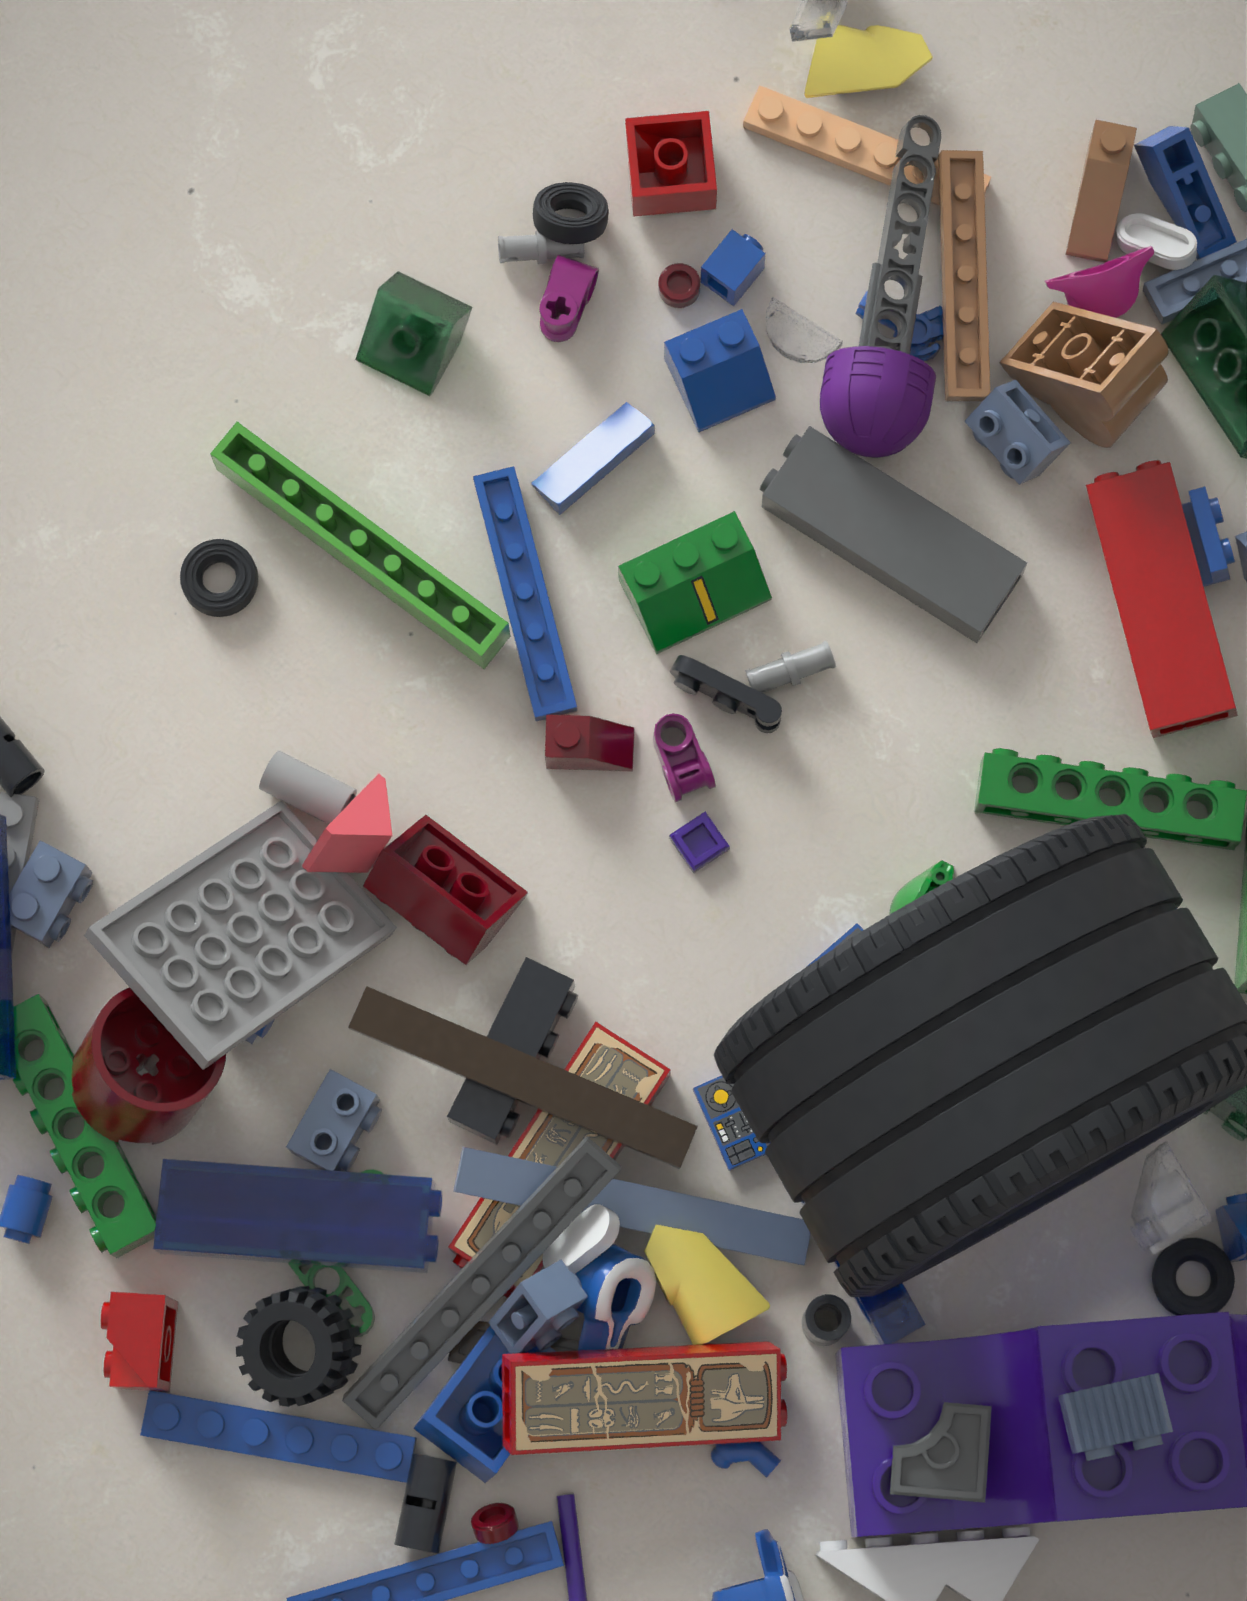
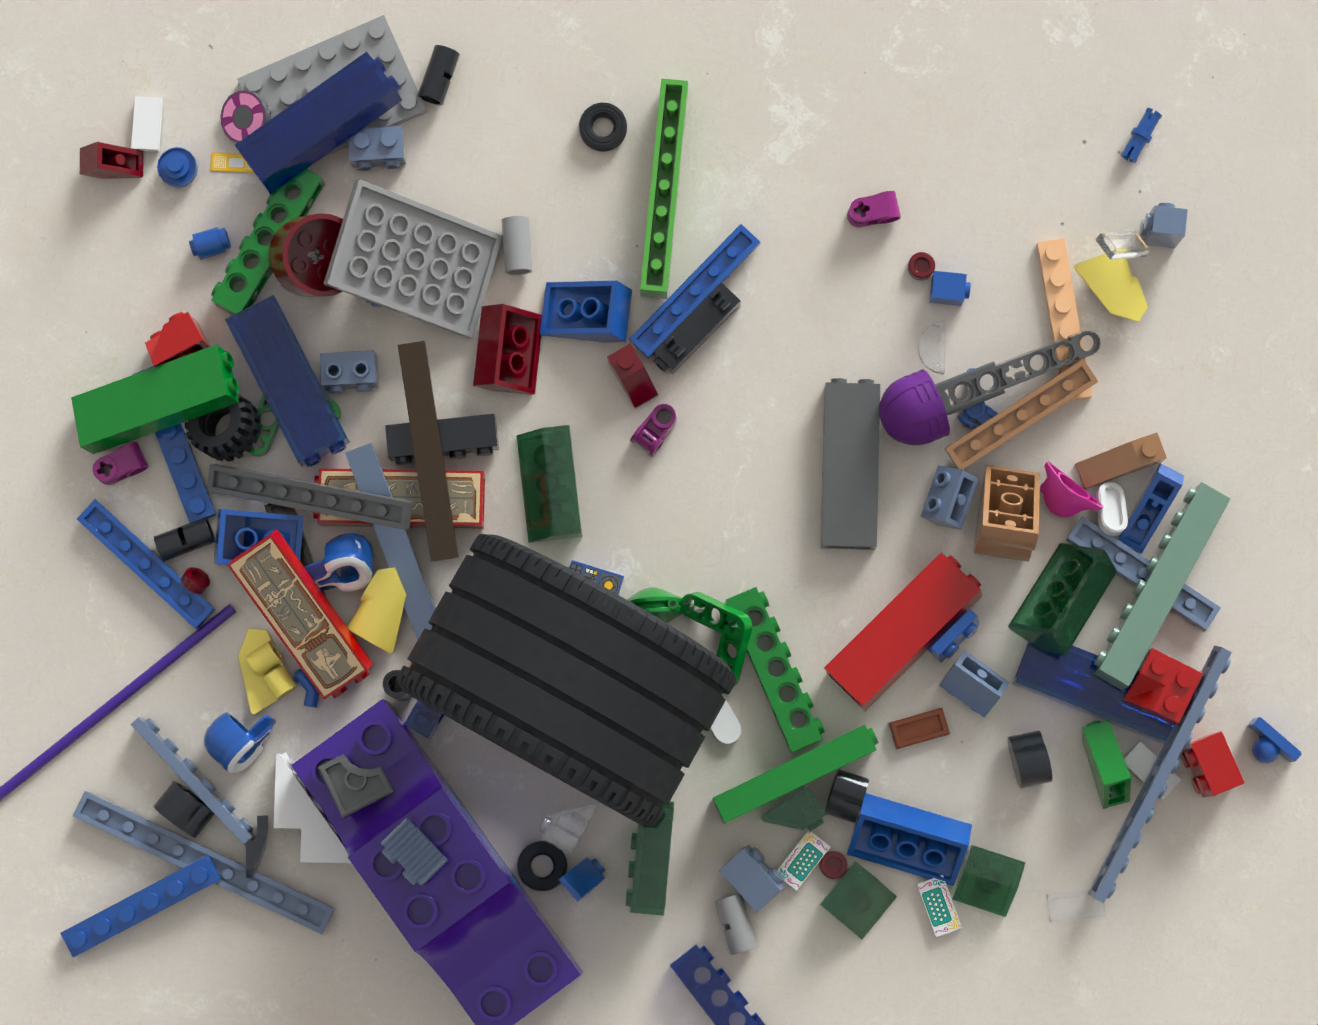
camera: 60 degrees right, 5 degrees up
(203, 1419) = (155, 399): none -> green brick
(262, 1522) = (123, 463): none -> magenta piece
(355, 835) = (504, 285): coral slope -> none
(412, 332) = (802, 141): clear green slope -> none
(458, 751) = (586, 310): none -> blue slope
(535, 248) = (894, 178): light grey pin -> none
(539, 1309) = (311, 534): sand blue brick -> none
(567, 229) = (931, 173): black tyre -> none
(578, 621) = (696, 329): none -> black brick
(584, 1238) = (360, 534): white tile -> none
(594, 457) = (794, 280): slope -> none
(668, 945) = (549, 484): none -> clear green slope
(671, 163) = (984, 218): red slope -> none
(681, 1505) = (263, 670): none -> light yellow panel
(694, 582) = (756, 377): green slope -> none
(699, 842) = (617, 467): dark purple tile -> none
(719, 370) = (884, 317): blue slope -> none
(727, 693) = (705, 431): black plate -> none
(791, 668) = (741, 456): light grey pin -> none
(1026, 824) = (729, 632): none -> green beam

